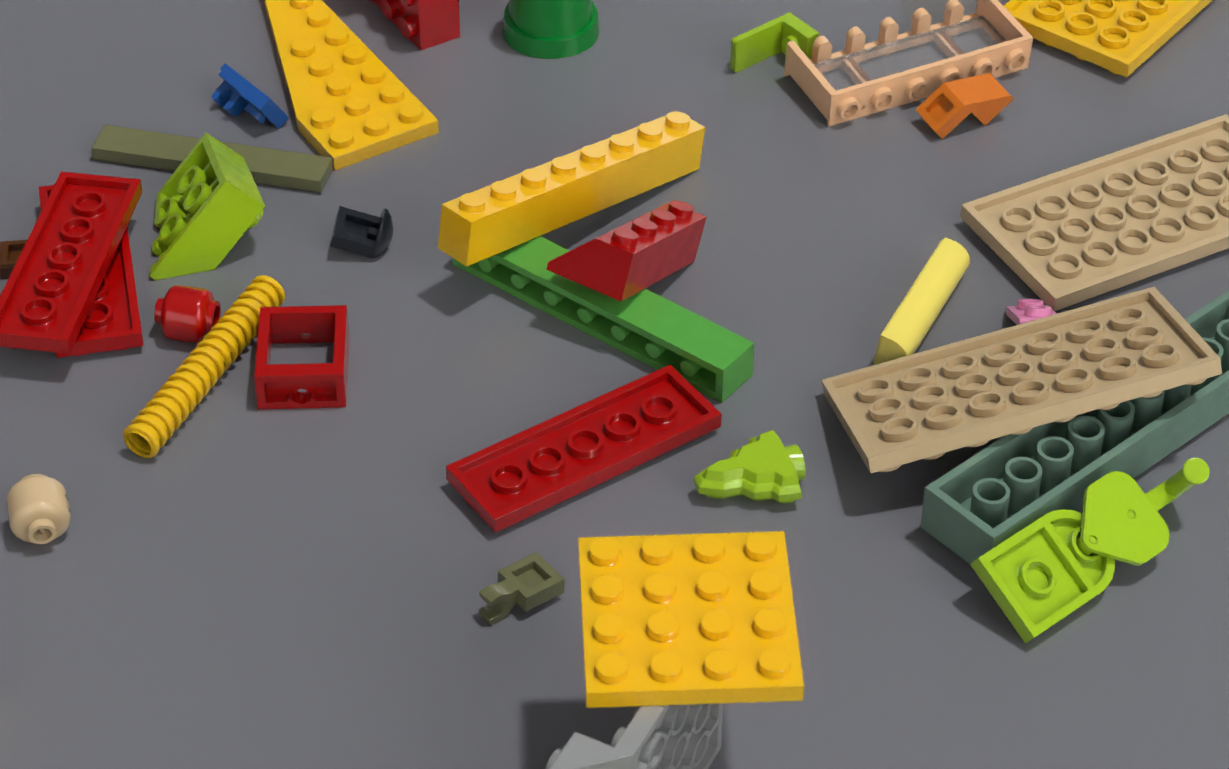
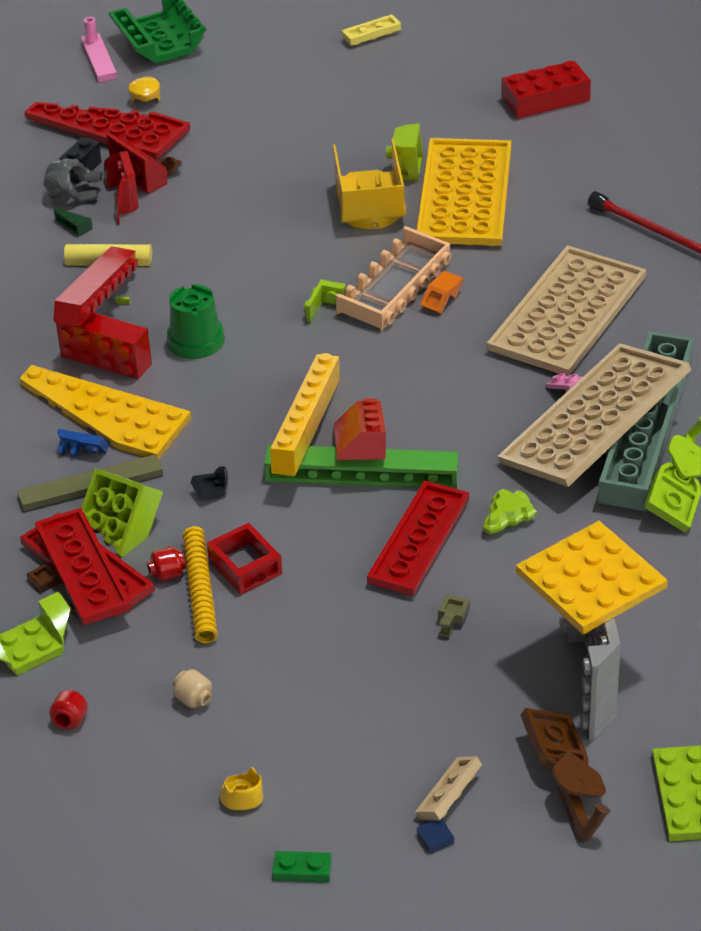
camera: 30 degrees left, 0 degrees up
(923, 302) = (510, 400): light yellow brick -> none

